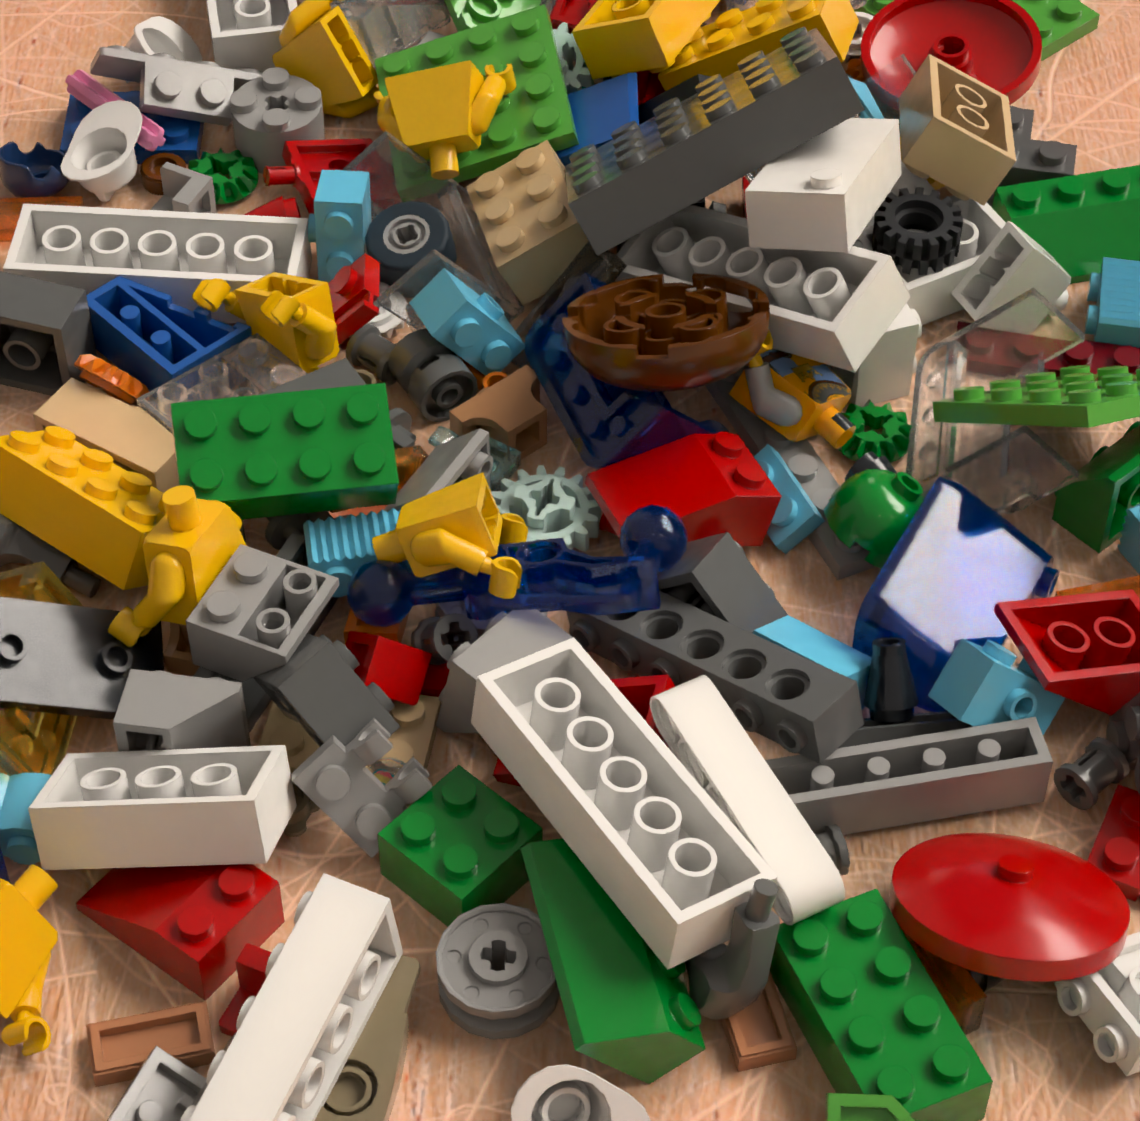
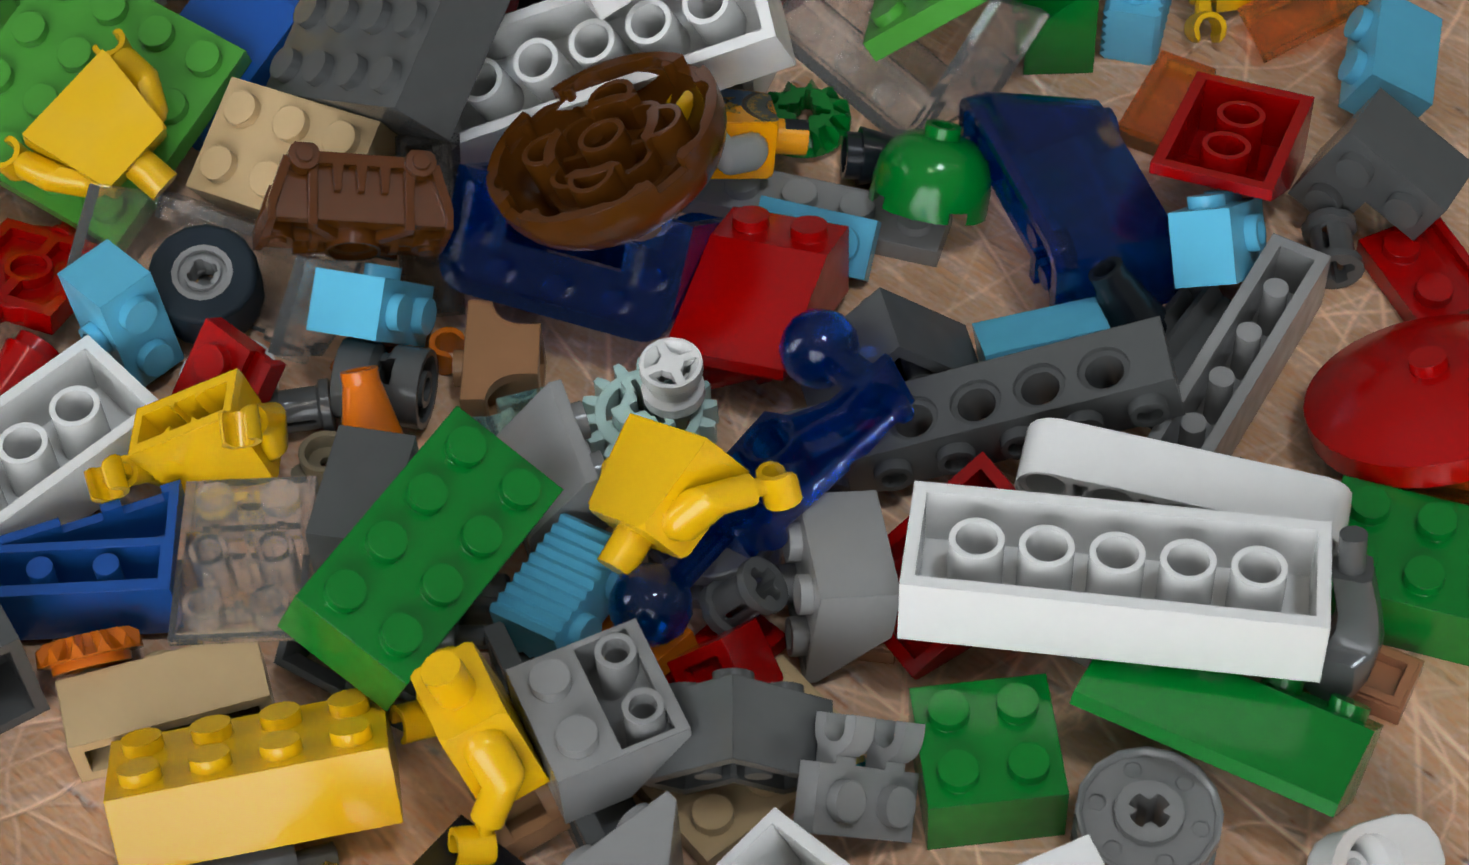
camera: 45 degrees left, 5 degrees up
(395, 370) = (366, 401): none -> orange cone
(498, 247) = (355, 205): none -> reddish brown piece
(563, 490) = (681, 363): none -> white wheel

